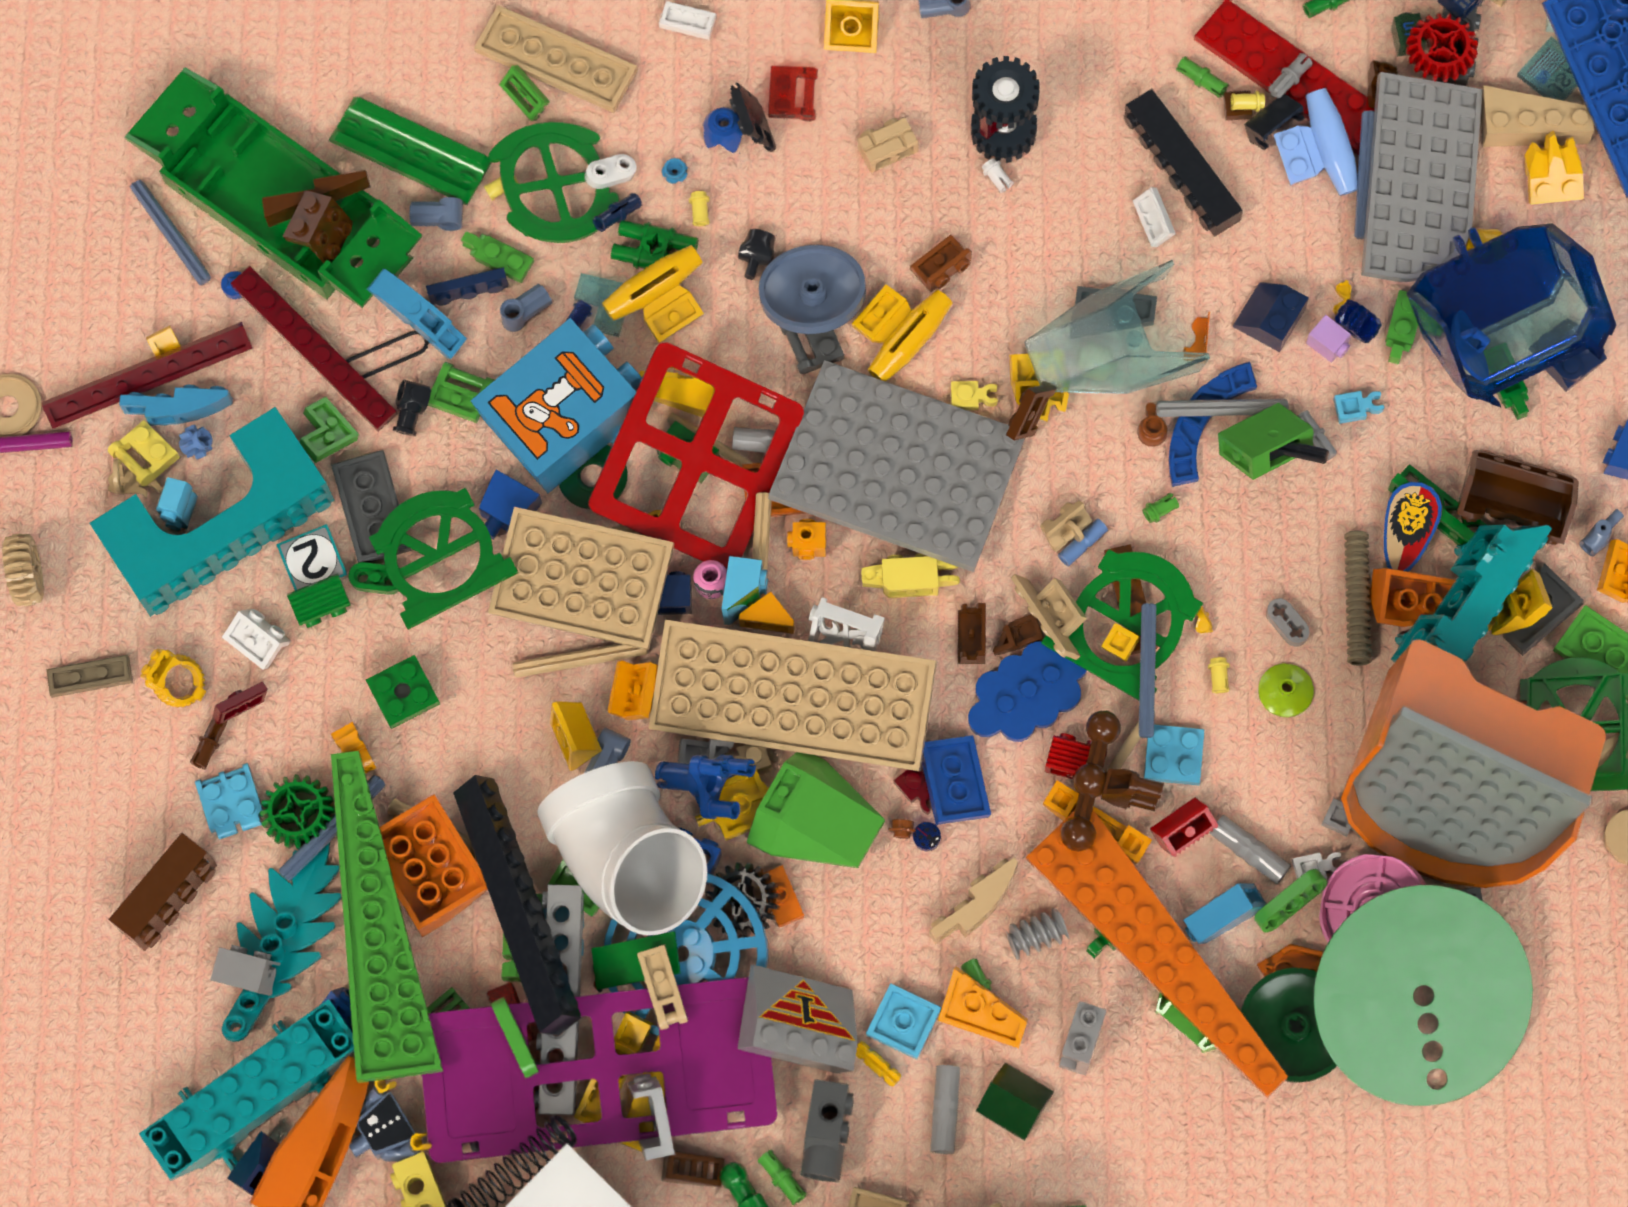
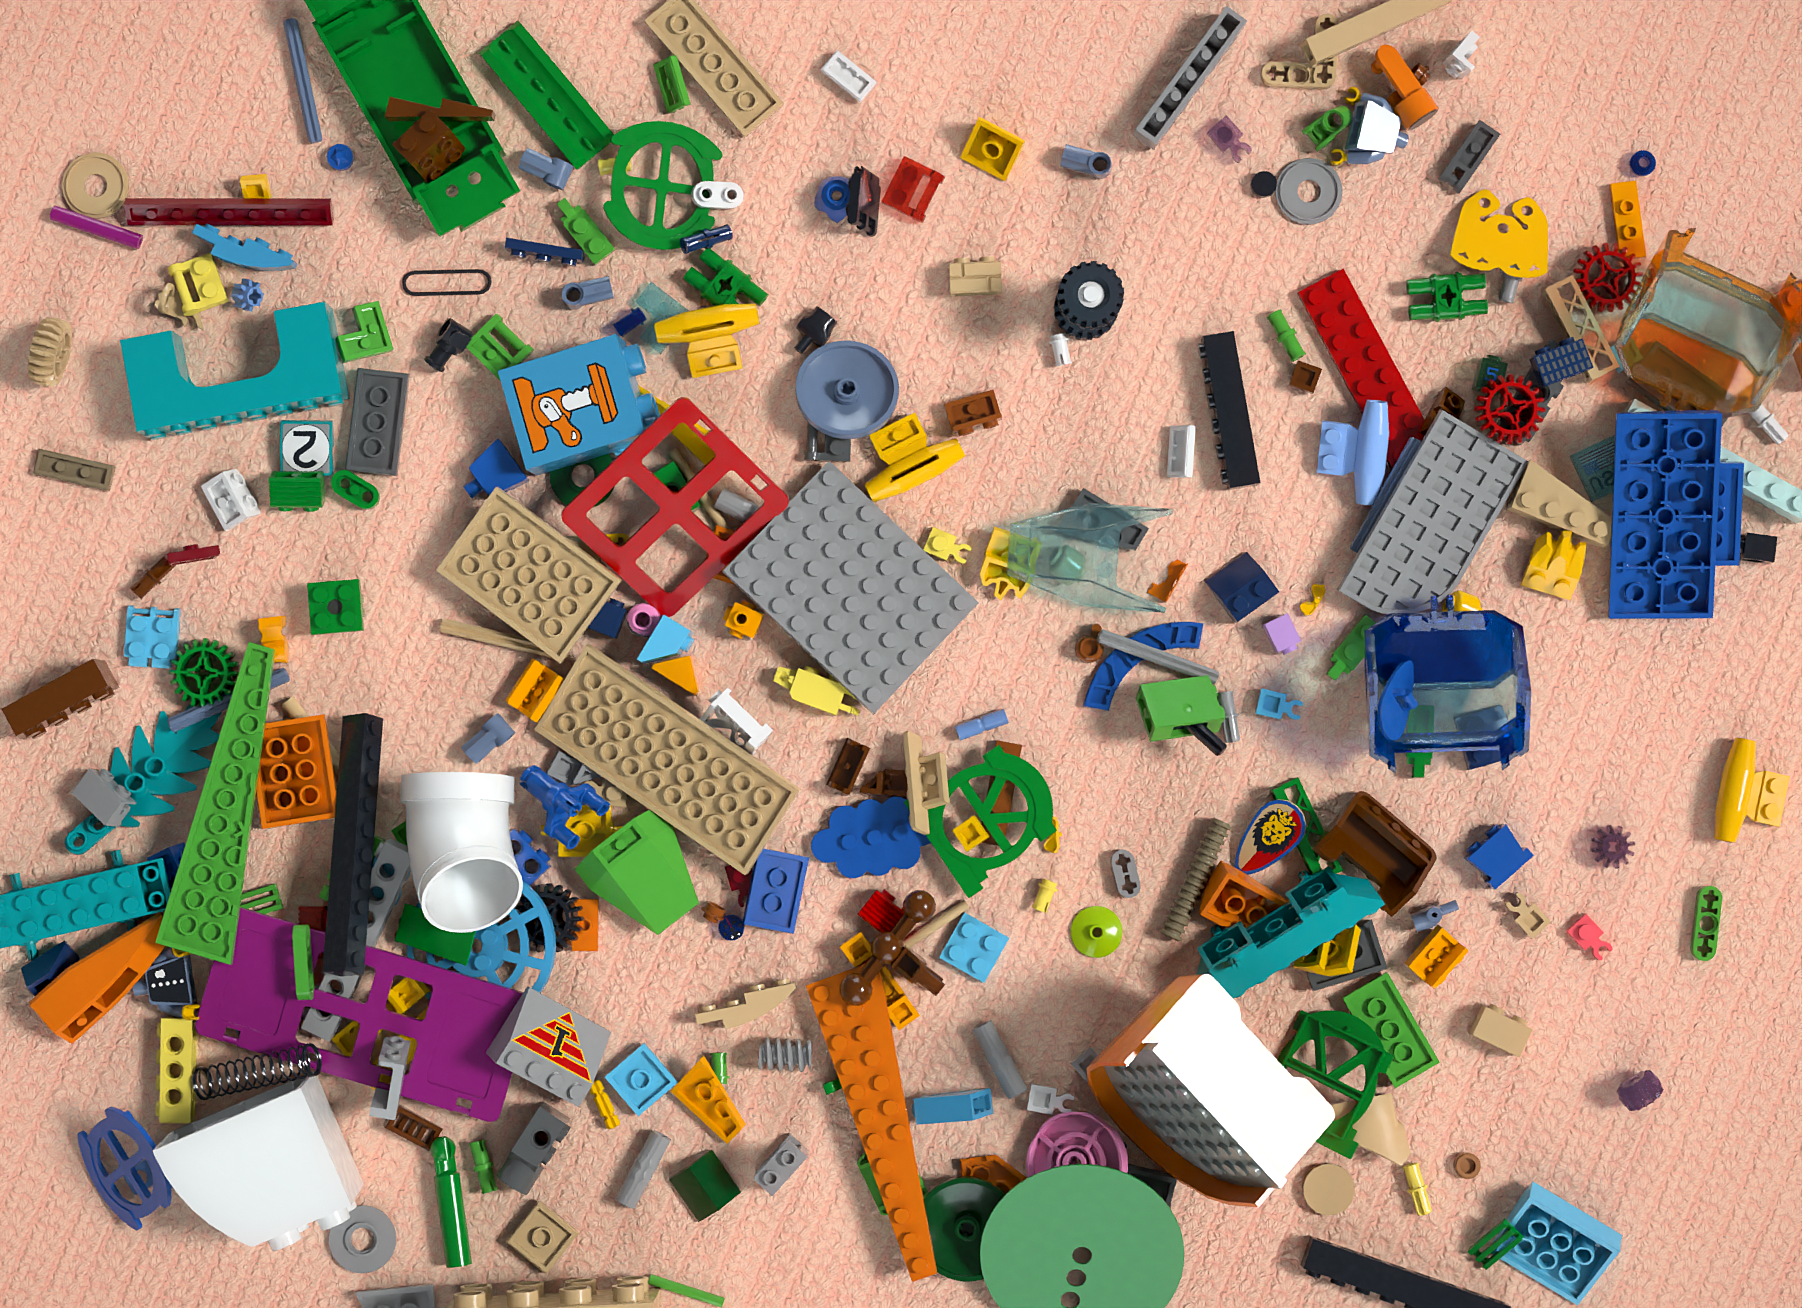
camera: 20 degrees right, 15 degrees up
(156, 671) = (135, 492): yellow piece -> none
(176, 503) = (206, 349): medium azure brick -> none
(313, 348) = (385, 250): dark red plate -> none
(392, 533) = (453, 535): green window -> none
(417, 312) = (486, 262): dark azure slope -> none
(573, 733) = (469, 708): yellow slope -> none
(662, 986) = (444, 972): tan plate -> none
(674, 164) = (782, 216): dark azure plate -> none
(699, 208) = (782, 265): light yellow pin -> none
(762, 528) = (705, 596): tan axle -> none
(1032, 404) = (989, 587): reddish brown plate -> none
(1067, 525) = (974, 706): tan hips -> none
(1147, 670) = (981, 870): sand blue axle -> none
(1161, 507) = (1062, 723): bright green pin -> none
(1184, 827) = (951, 1018): red brick -> none
(1248, 101) = (1313, 380): light yellow pin -> none
(1272, 118) = (1328, 407): black hinge -> none
(1290, 76) = (1362, 373): light grey axle -> none
(1290, 900) = (1012, 1121): bright green beam -> none
(1358, 321) = (1313, 630): clear blue gear -> none

